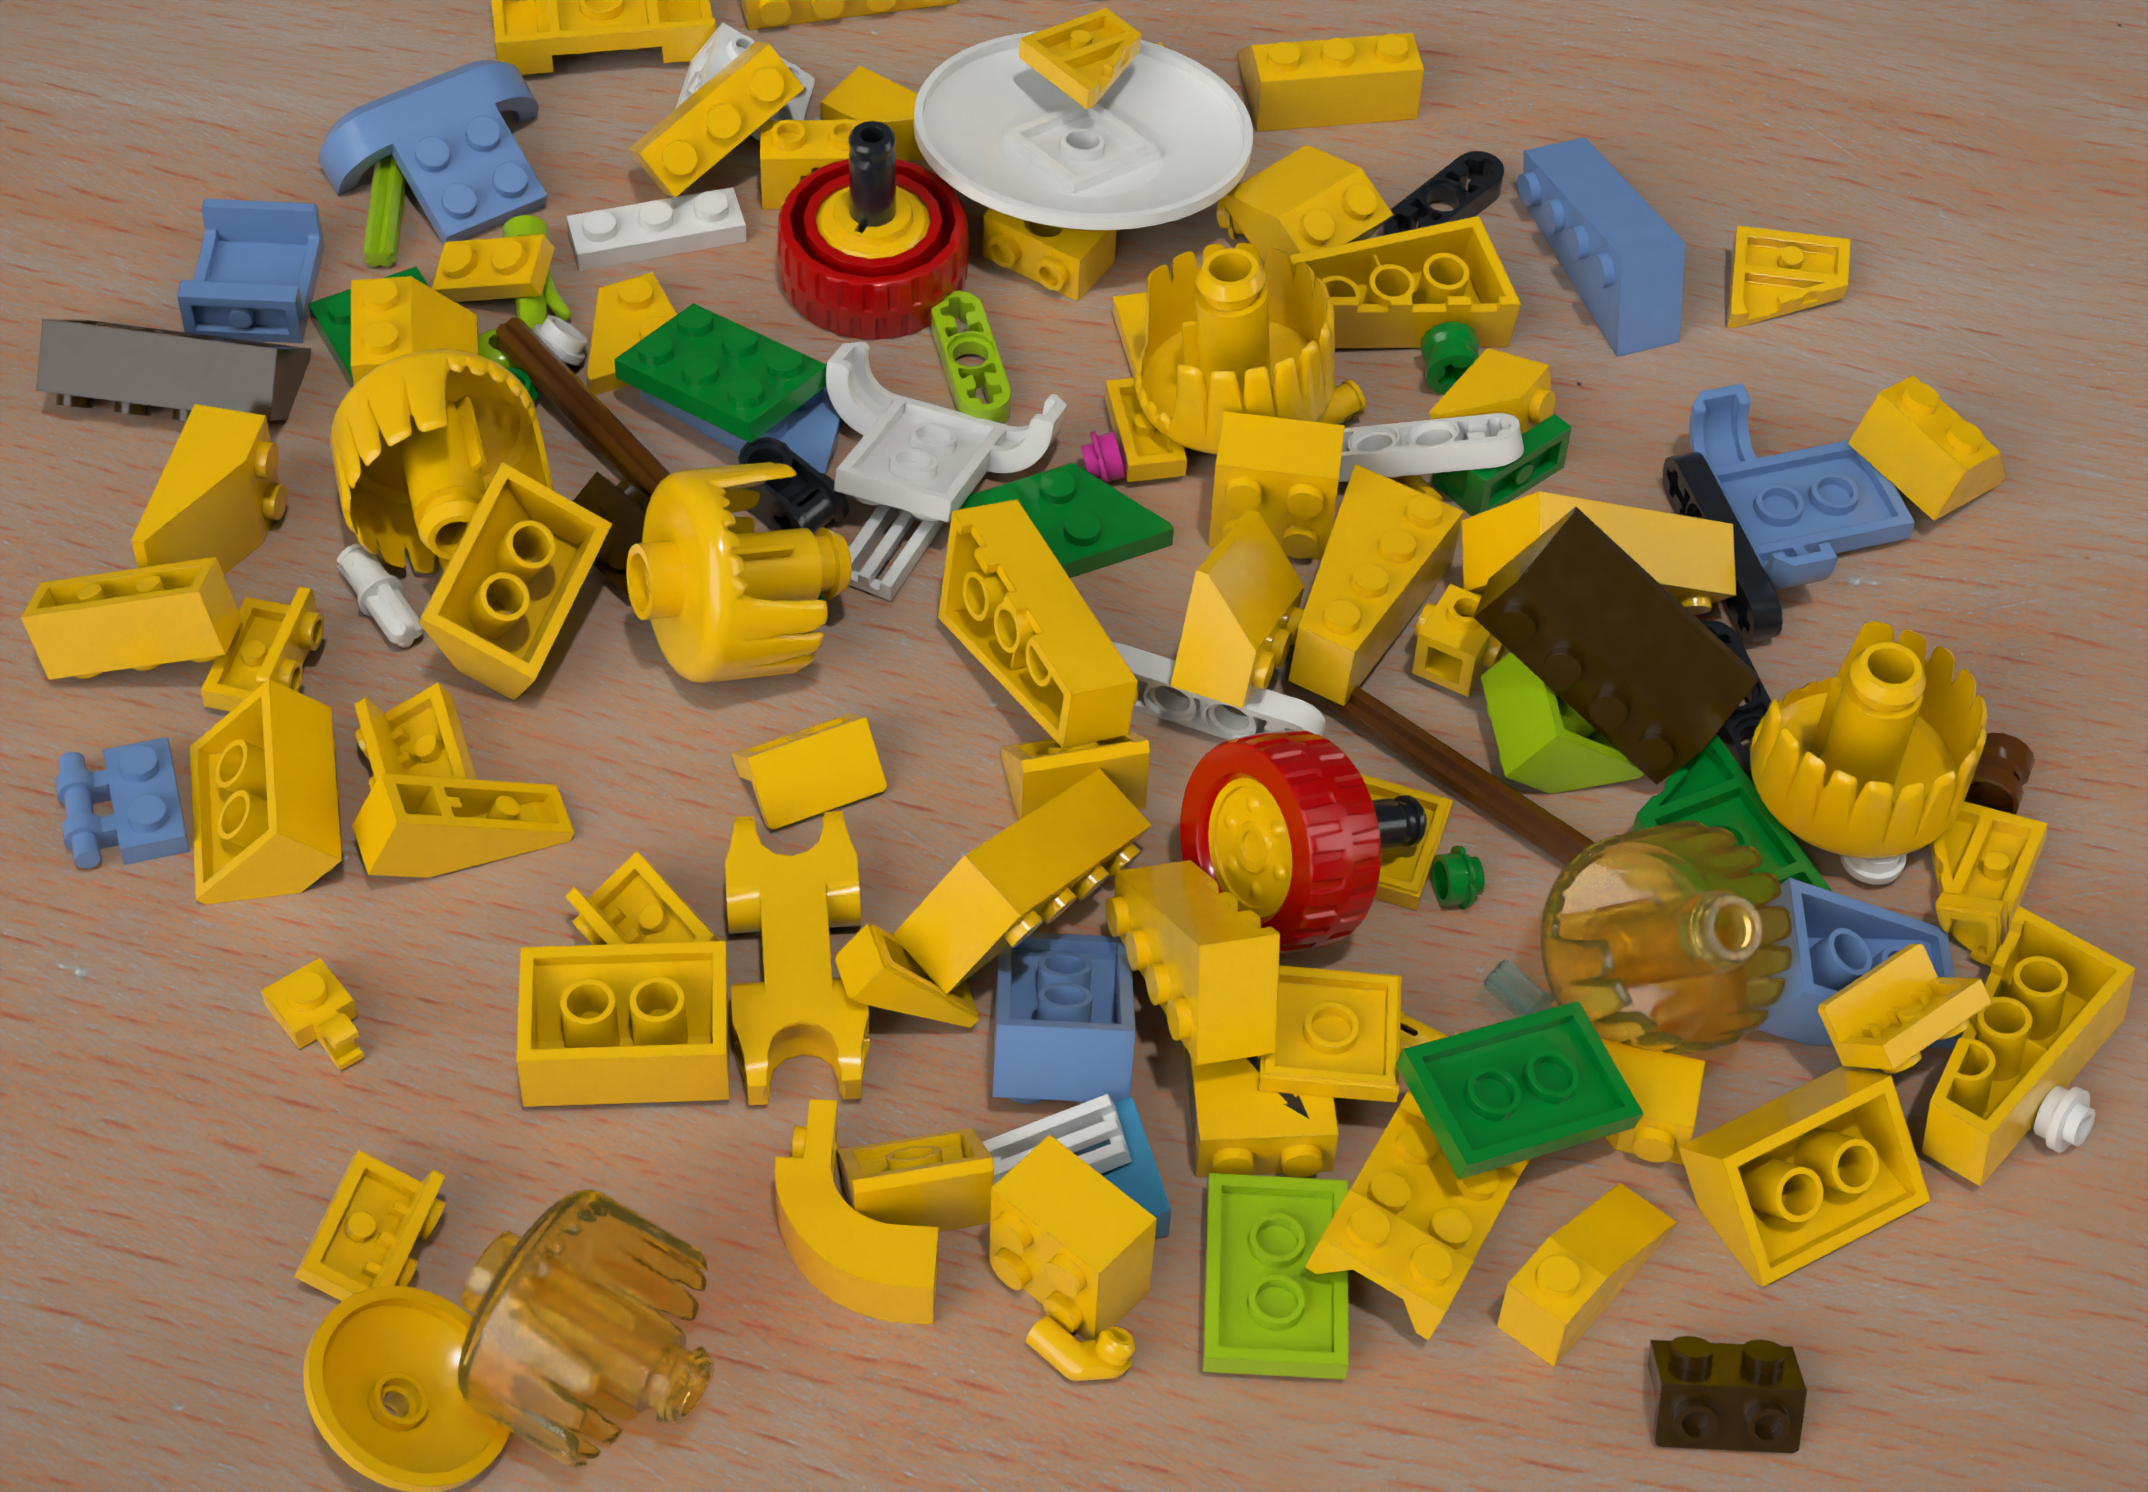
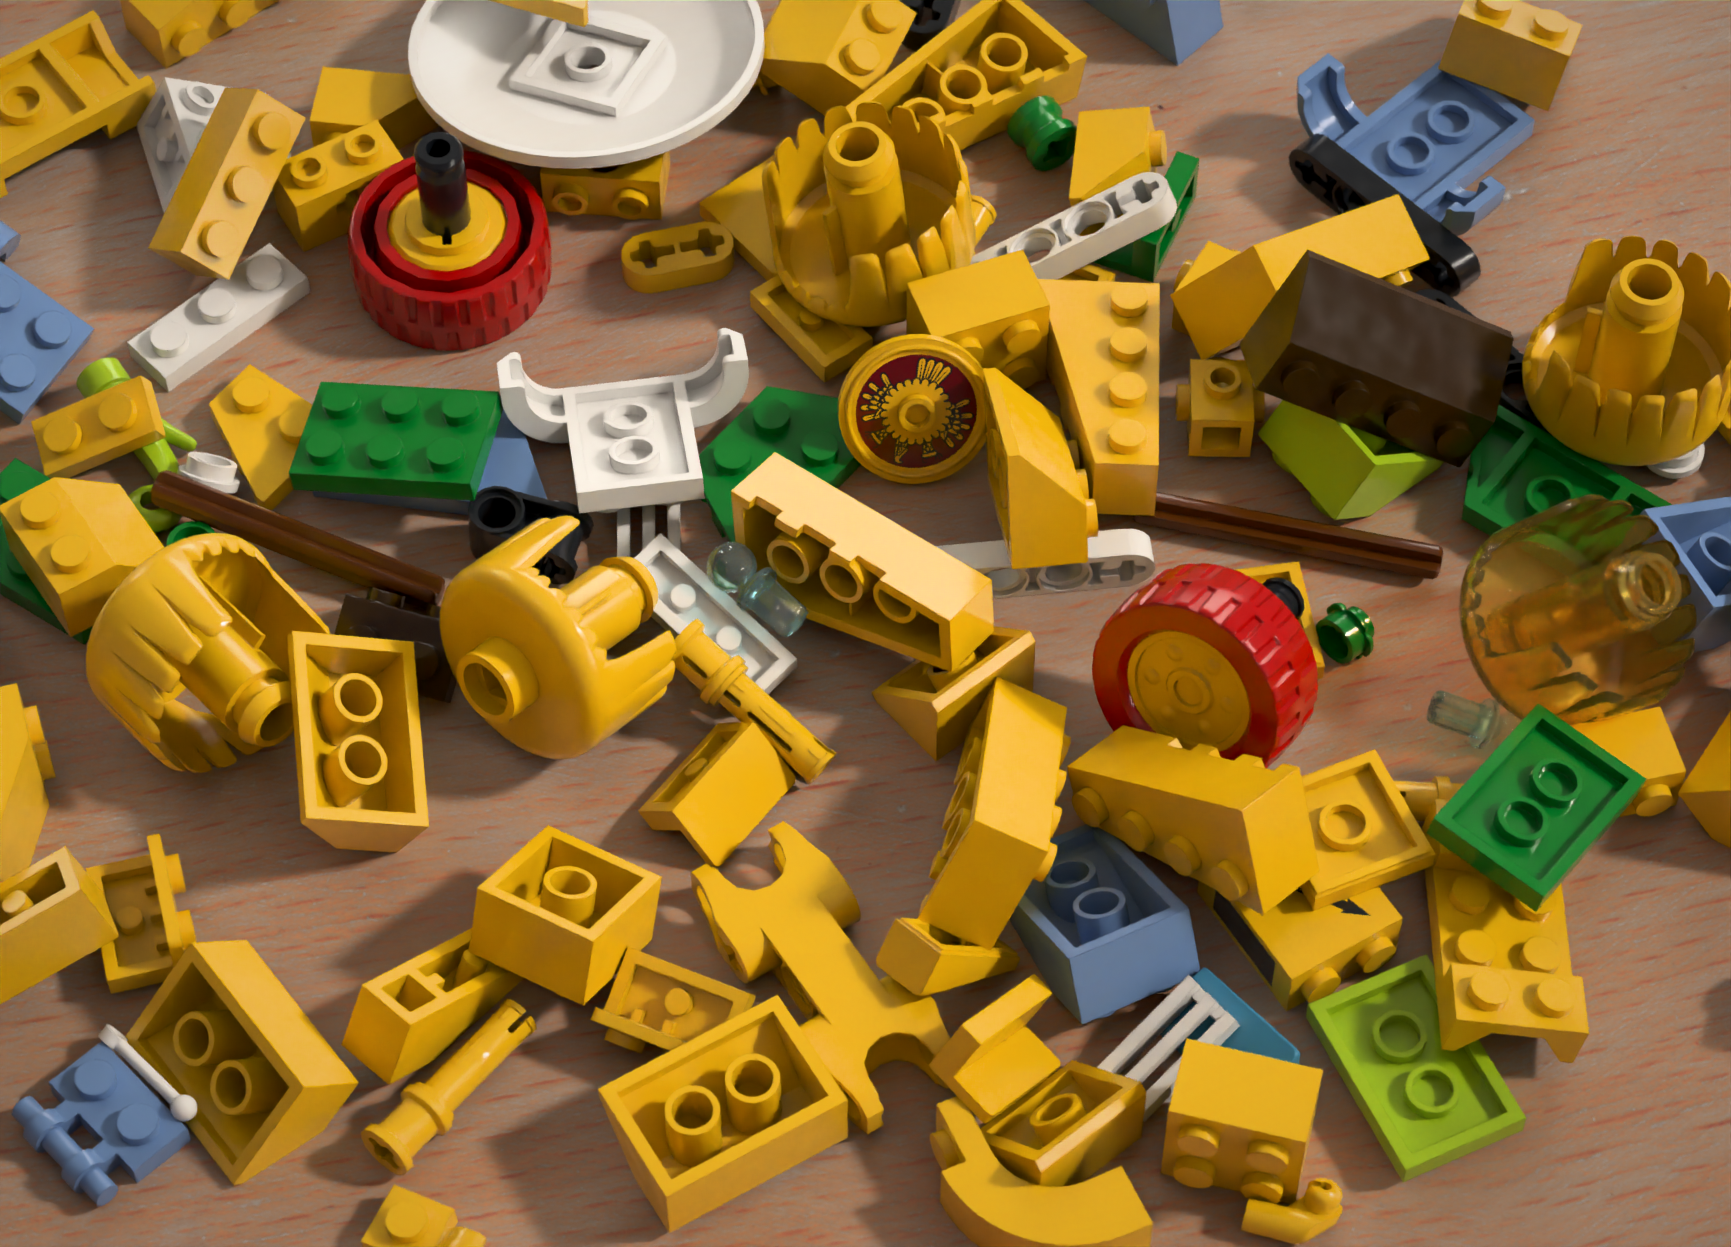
camera: 25 degrees left, 5 degrees up
(192, 817) = (182, 1106): none -> white hinge
(379, 595) = (207, 807): white axle -> none
(391, 909) = (430, 1105): none -> yellow pin
(415, 737) = (346, 938): yellow bracket -> none
(598, 799) = (564, 914): none -> yellow brick
(867, 677) = (725, 682): none -> yellow pin
(891, 628) = (689, 594): none -> white plate
(896, 1080) = (995, 1054): none -> yellow panel
(939, 609) = (734, 569): none -> clear light blue axle
(975, 340) = (601, 299): lime beam -> none
(1067, 333) = (677, 257): none -> yellow beam
(1103, 457) = (792, 367): dark pink plate -> none
(1168, 518) = (913, 408): none -> yellow shield
(1581, 1272) = (1660, 941): yellow slope -> none

